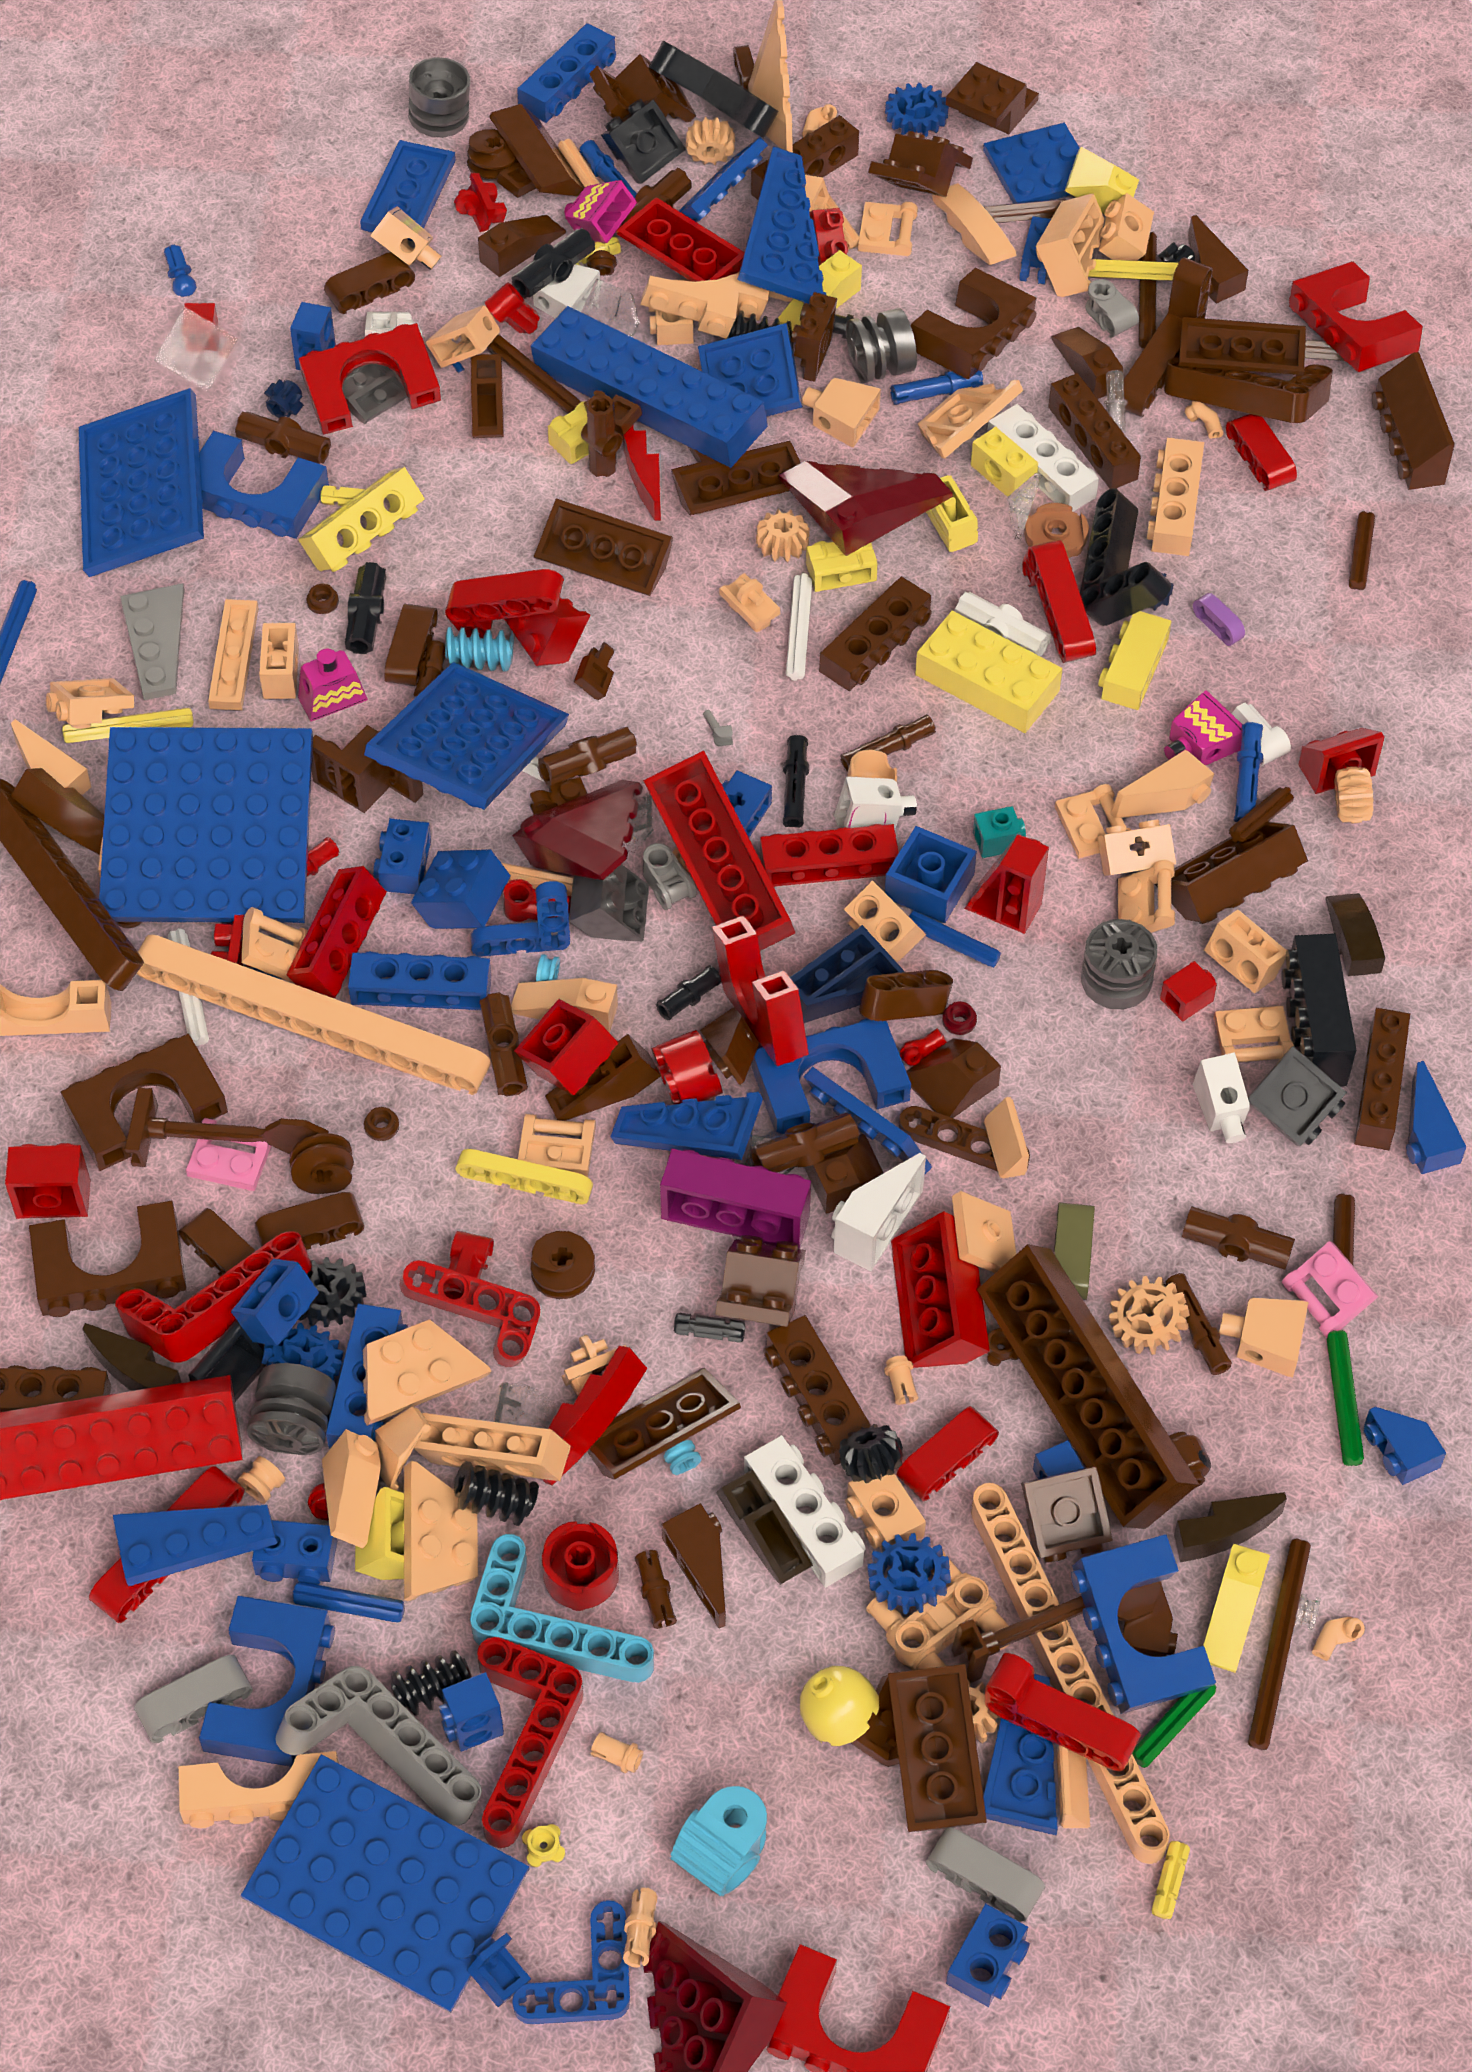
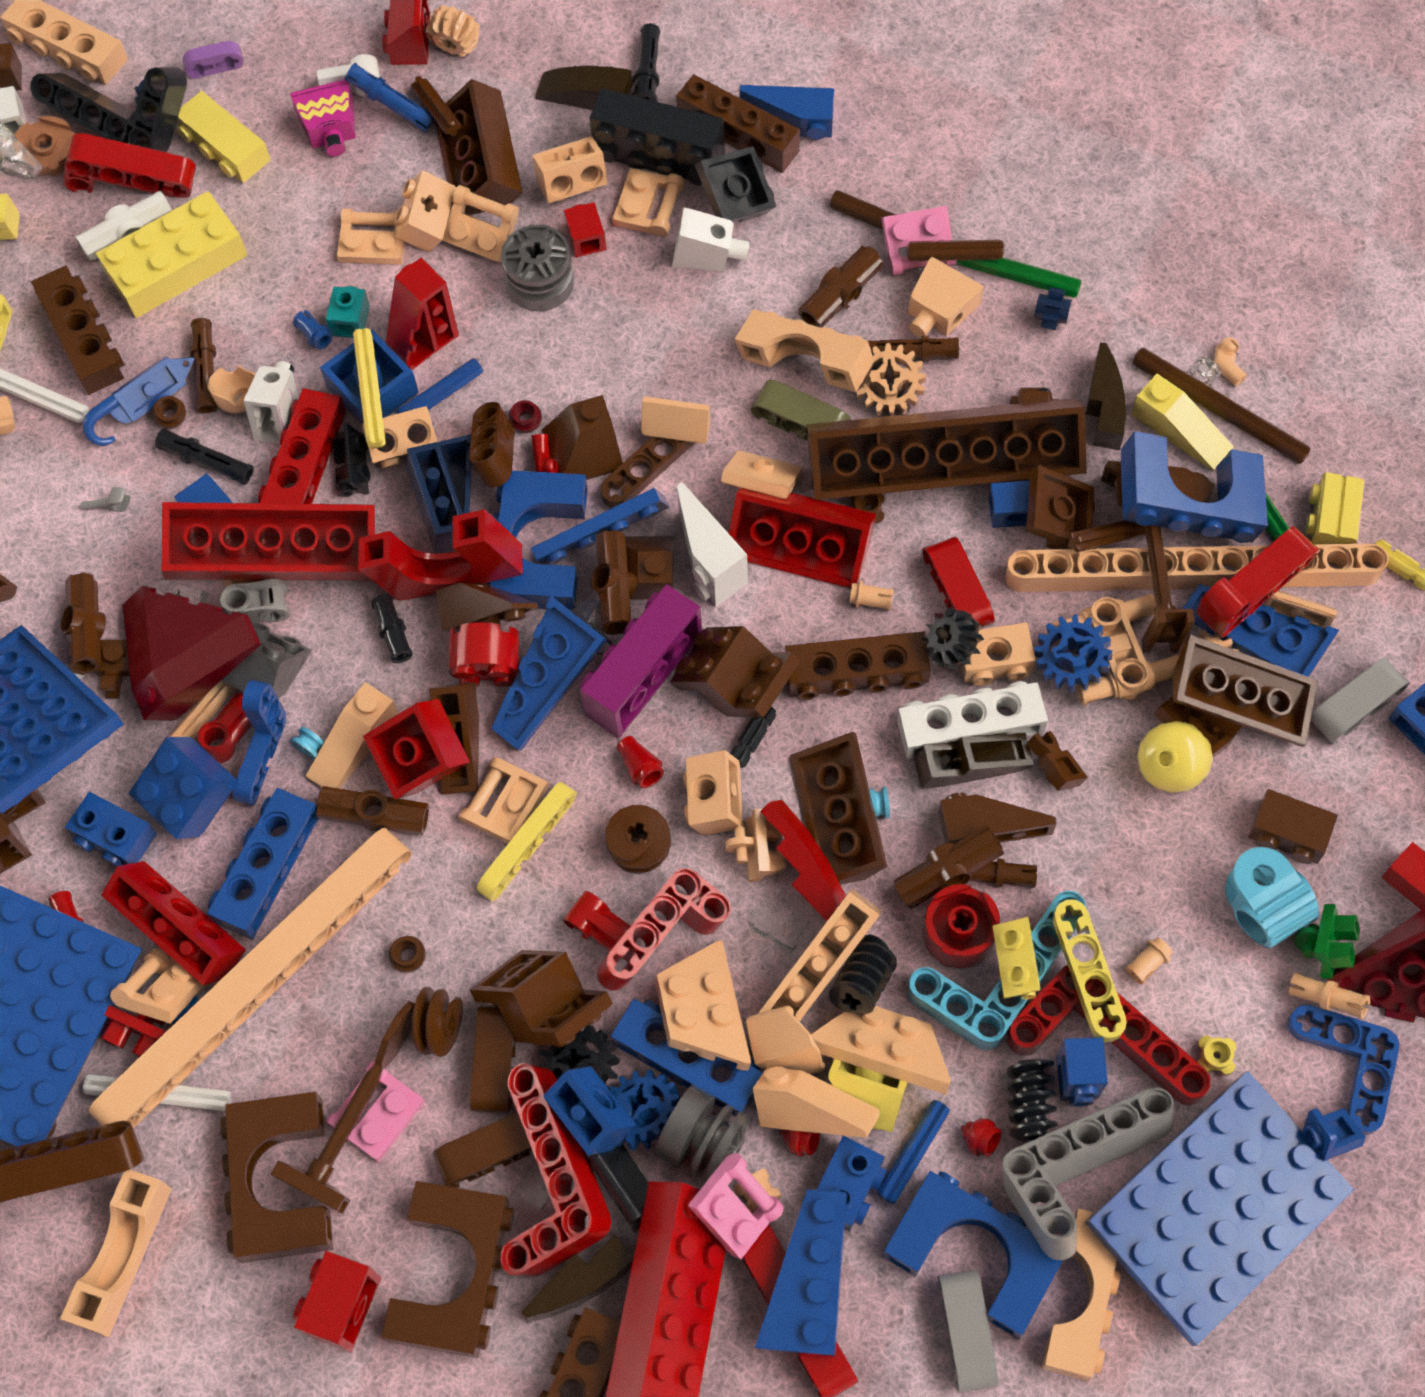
camera: 65 degrees left, 10 degrees up
(218, 1446) = (726, 1214): none -> bright pink plate
(370, 1234) = (541, 998): none -> reddish brown bracket
(381, 1655) = (981, 1136): none -> red plate
(569, 1681) = (1093, 969): none -> light yellow beam
(570, 1607) = (1016, 959): none -> light yellow hinge
(631, 1310) = (724, 808): none -> light nougat brick
(636, 1533) = (948, 866): none -> reddish brown piece
(638, 1242) = (641, 764): none -> red cone
(697, 1908) = (1325, 940): none -> green hips
(788, 1604) = (1058, 765): none -> reddish brown plate
(813, 1845) = (1292, 827): none -> reddish brown brick
(824, 729) = (169, 403): none -> reddish brown plate
(831, 706) = (138, 395): none -> plate
(831, 902) = (351, 449): none -> black hinge
(908, 870) = (369, 388): none -> light yellow axle
(963, 818) = (318, 335): none -> blue pin
(1049, 1556) = (1105, 535): none -> reddish brown axle
(1138, 1250) = (770, 338): none -> light nougat arch
(1166, 788) = (373, 161): light nougat slope -> none
(1198, 1790) = (1336, 509): none -> light yellow brick
(1310, 1440) = (1052, 308): none -> dark blue gear
(1329, 1323) = (955, 250): none -> reddish brown axle
(1395, 981) = (646, 77): none -> black pin
(1405, 1442) = (1081, 244): blue slope -> none

